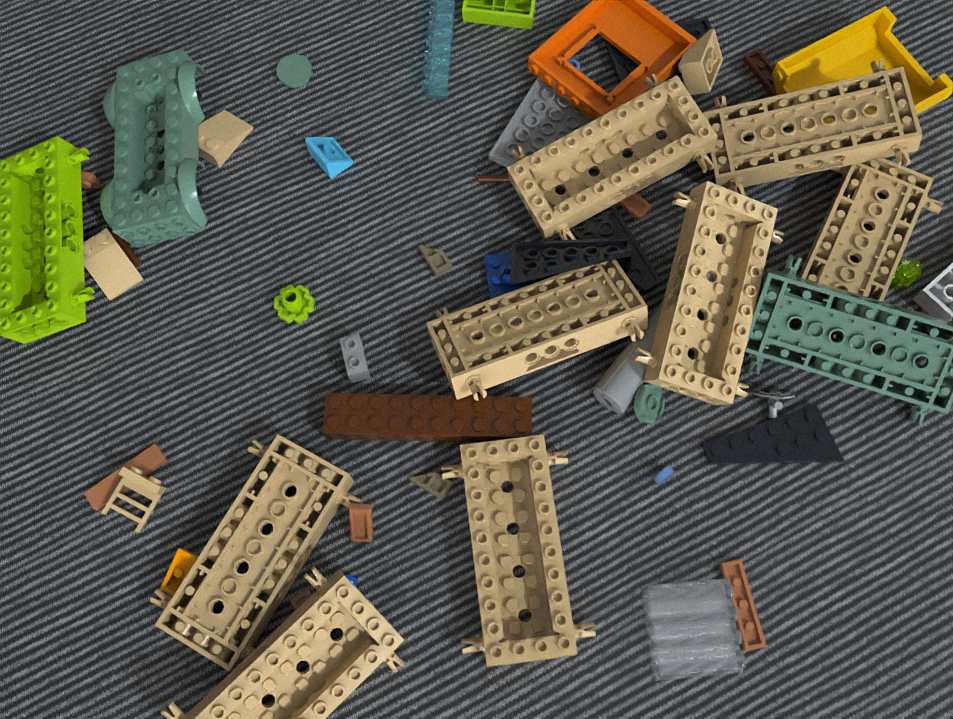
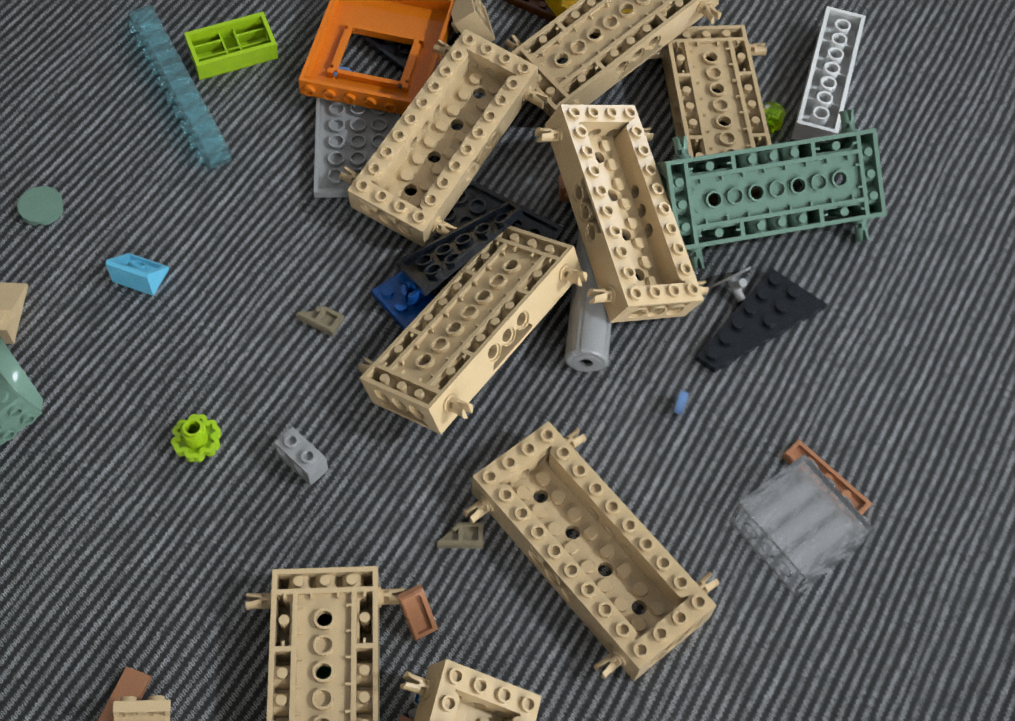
camera: 40 degrees left, 10 degrees down
(426, 417) = (412, 475): reddish brown brick -> none
(493, 178) = (333, 213): reddish brown piece -> none
(636, 206) = (491, 174): nougat tile -> none
(649, 403) = (625, 343): sand green tile -> none

